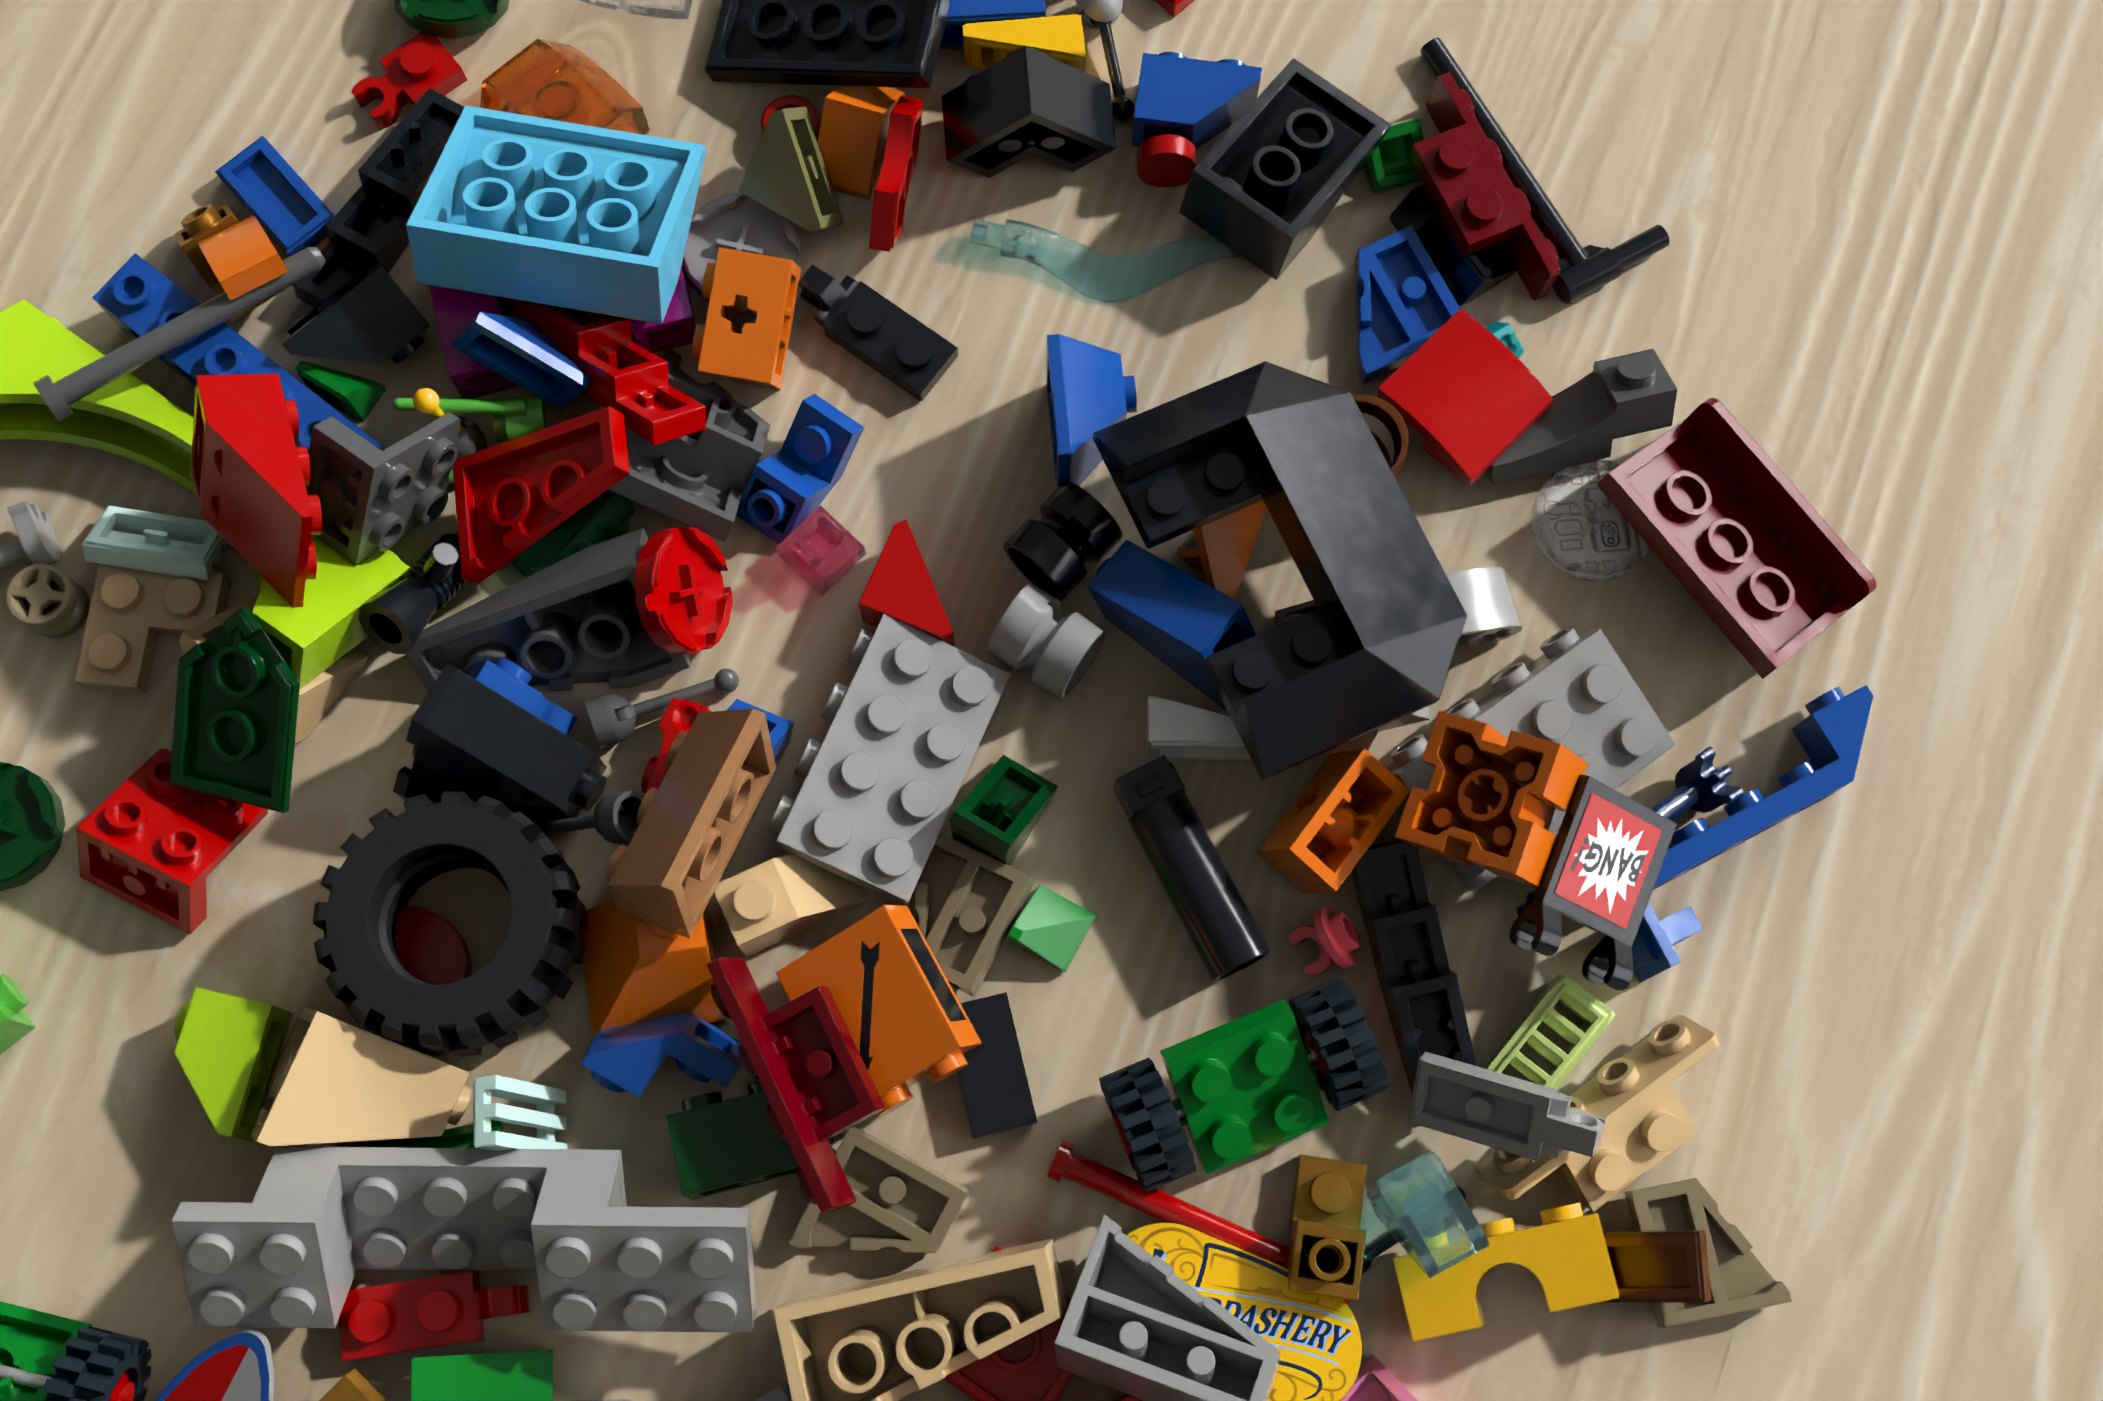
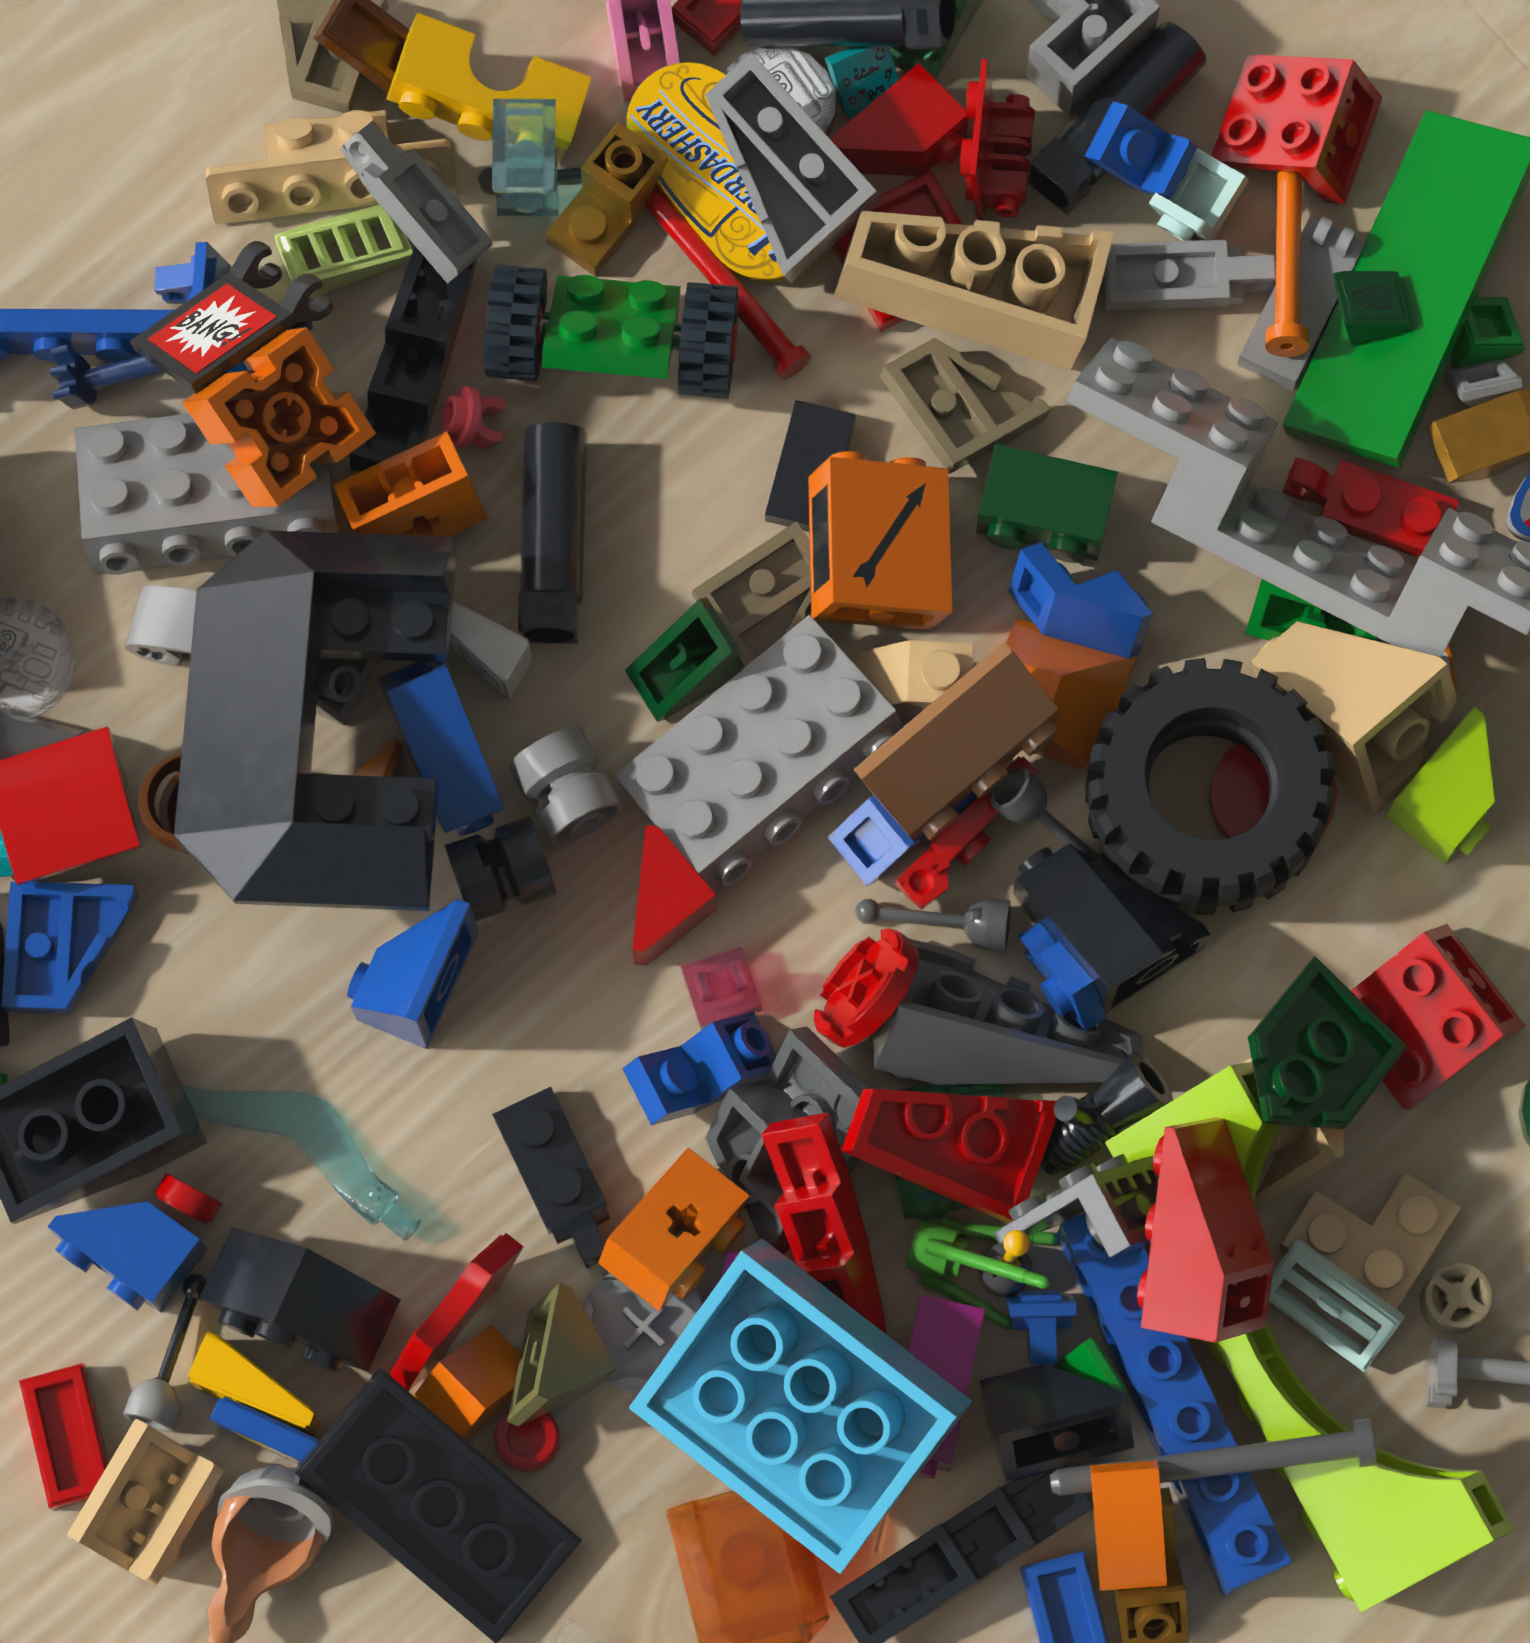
camera: 150 degrees left, 0 degrees up
(391, 422) = (1041, 1315): none -> blue brick
(512, 1089) = (1225, 587): light aqua tile -> none
(524, 356) = (900, 1288): blue slope -> none
(807, 1071) = (965, 506): dark red bracket -> none
(1051, 928) = (696, 552): slope -> none

